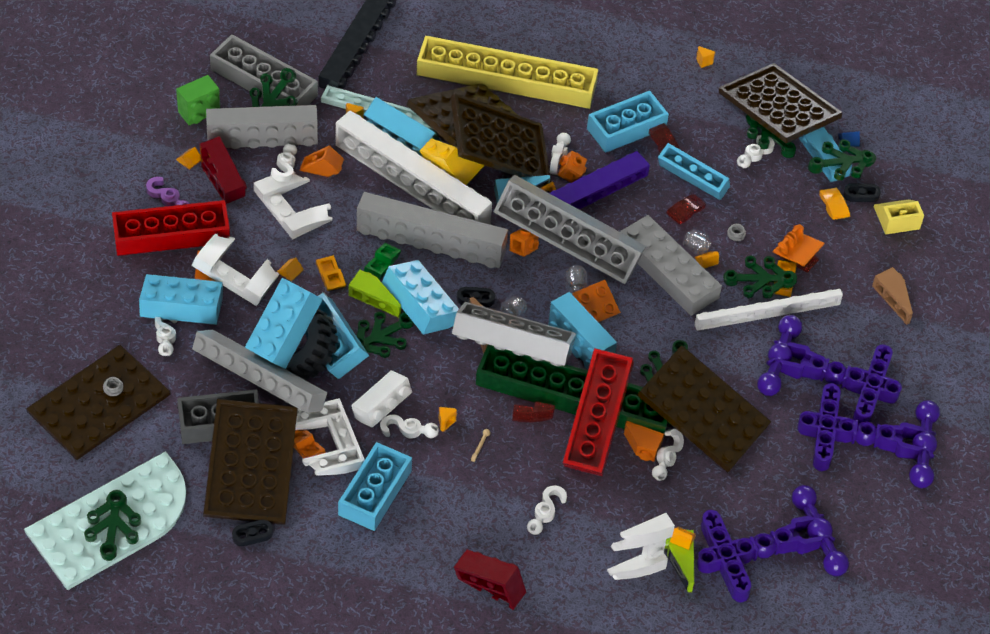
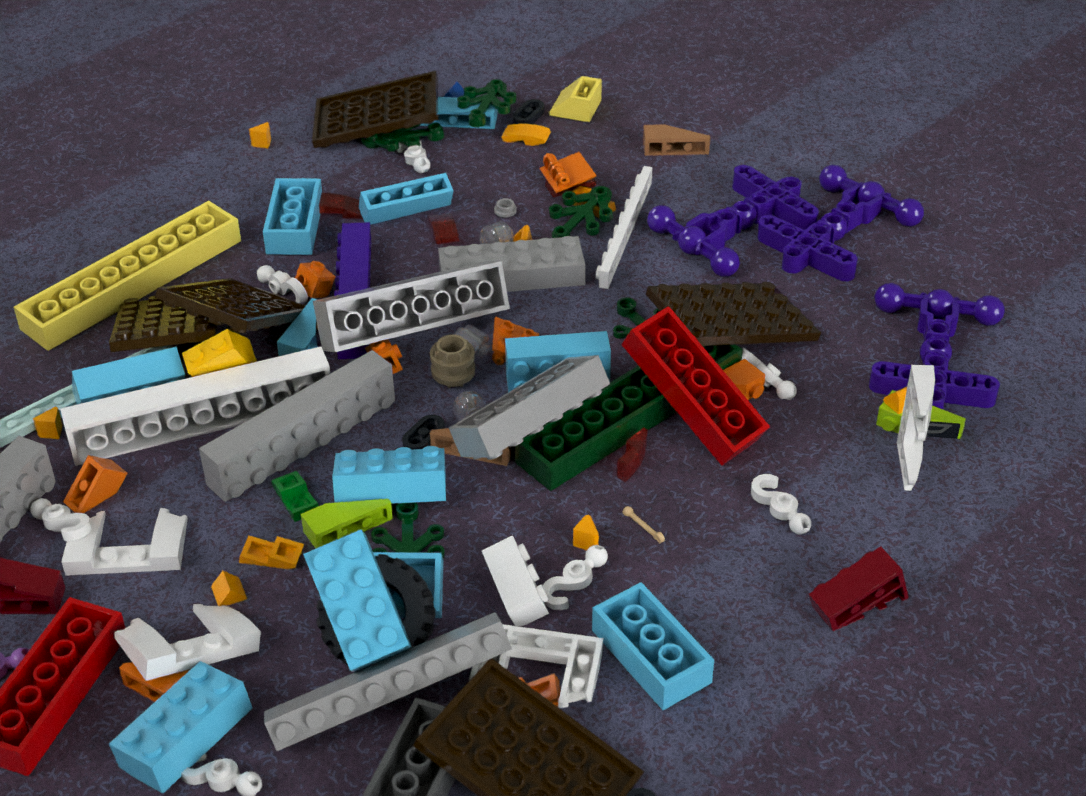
camera: 55 degrees left, 10 degrees down
(545, 277) = (452, 361): none -> dark tan piece

